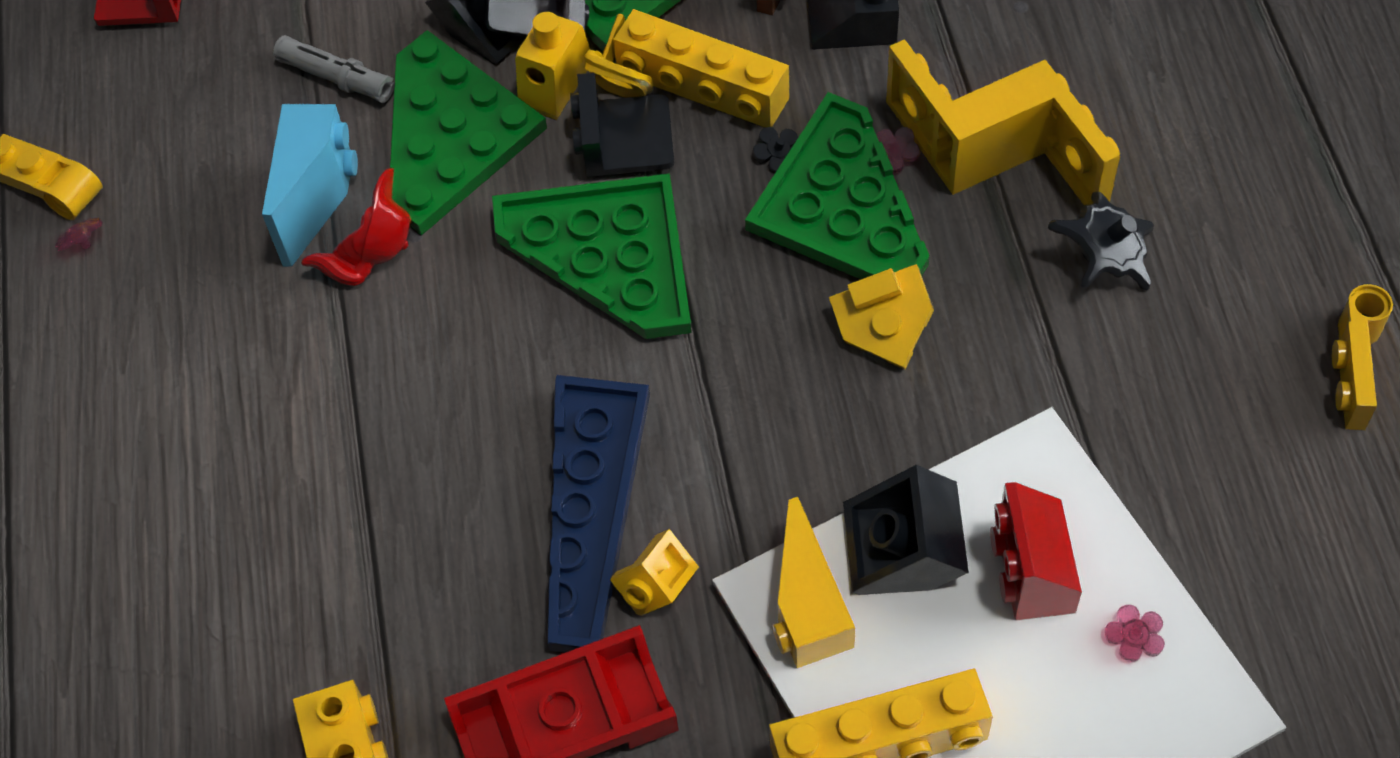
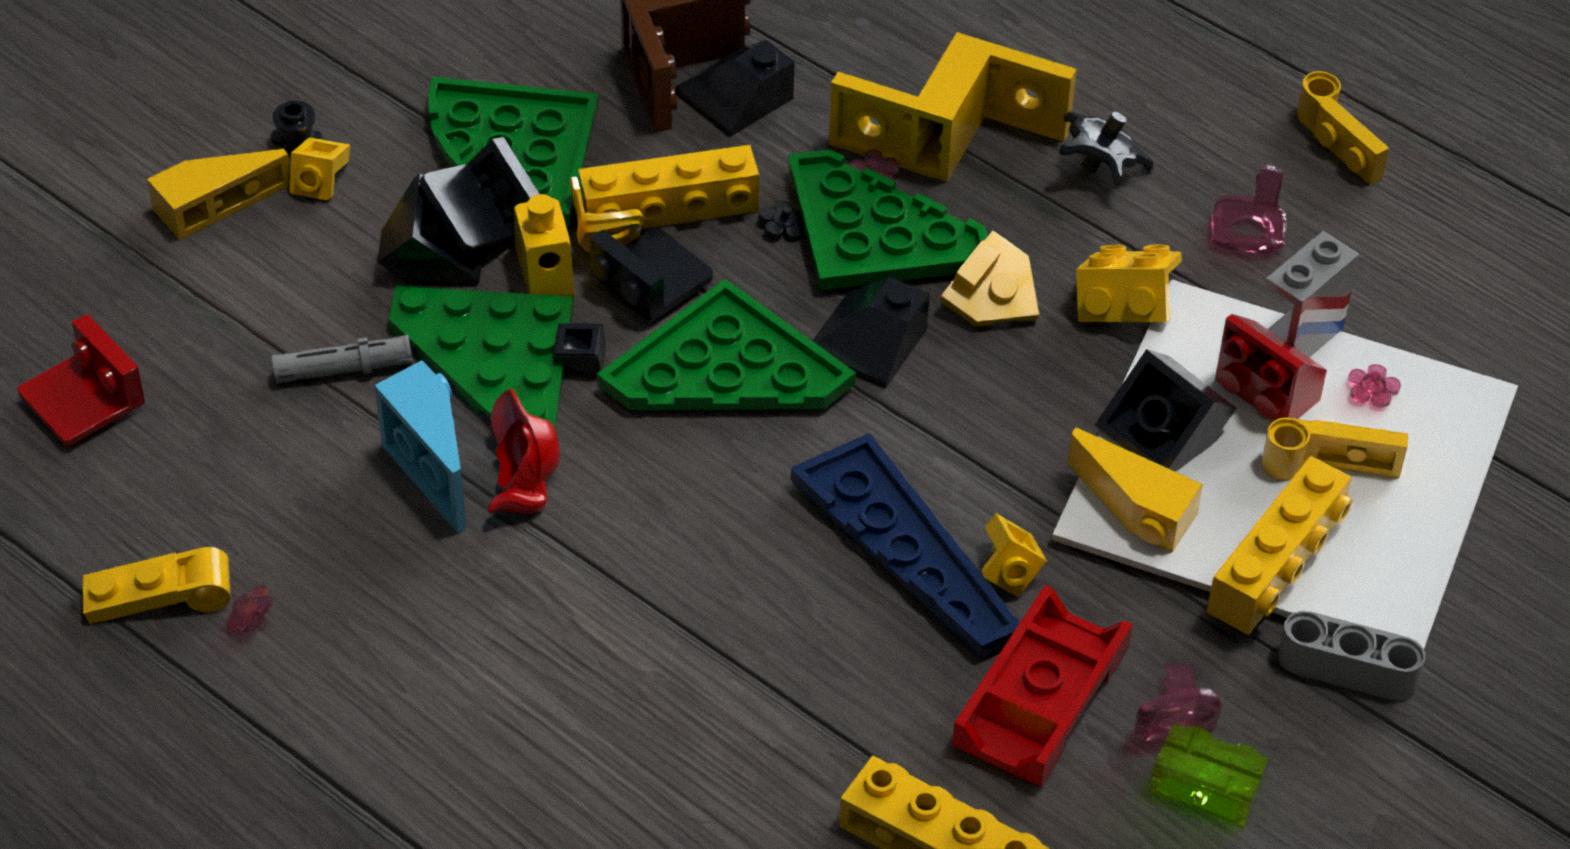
camera: 45 degrees left, 10 degrees down
(507, 166) = (580, 347): none -> black slope
(747, 296) = (876, 328): none -> black slope
(995, 383) = (1126, 284): none -> yellow bracket
(1029, 667) = (1337, 444): none -> yellow plate
(1125, 511) = (1320, 287): none -> light grey panel
(1204, 384) = (1262, 208): none -> clear pink piece

